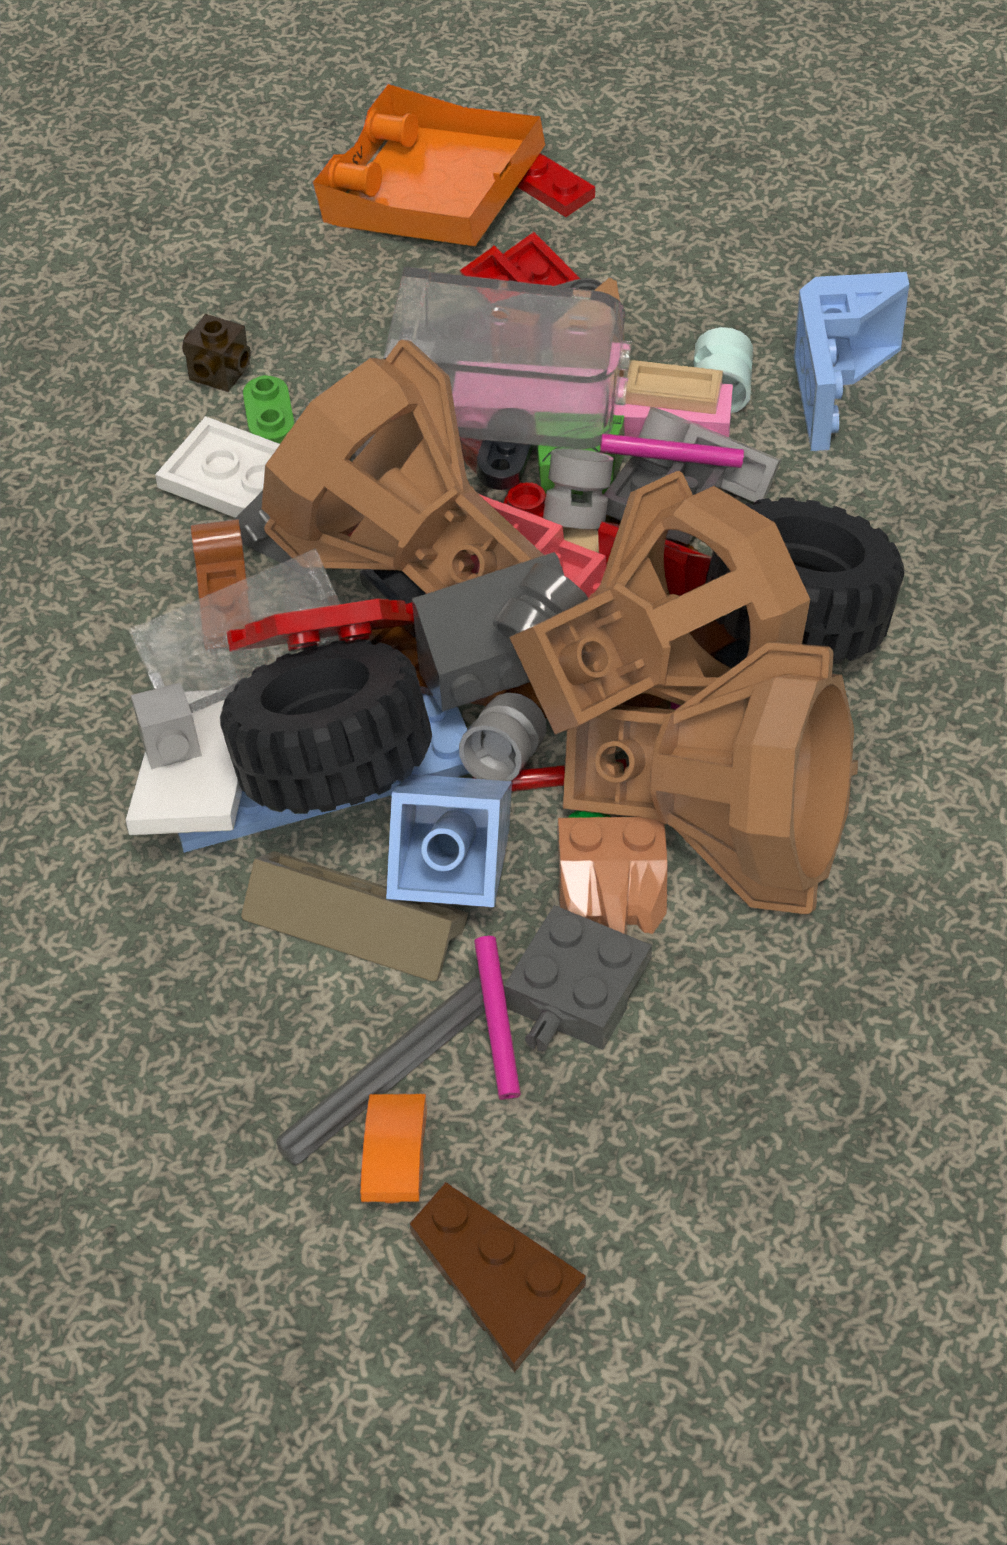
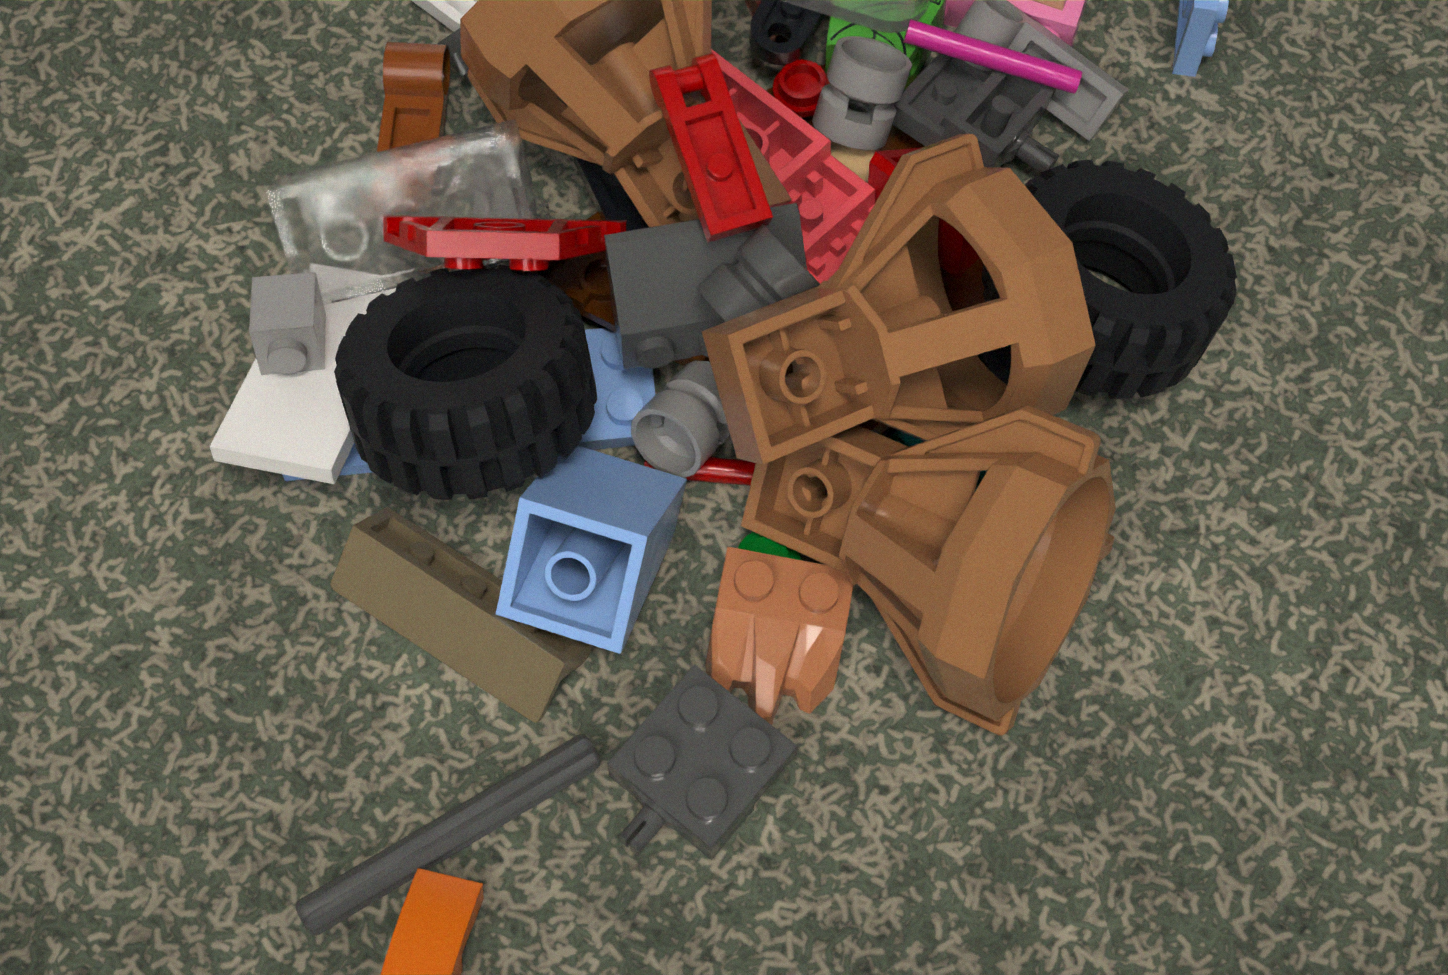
camera: 10 degrees right, 15 degrees up
(481, 518) = (711, 148): none -> red plate
(497, 1017) = (591, 799): dark pink piece -> none

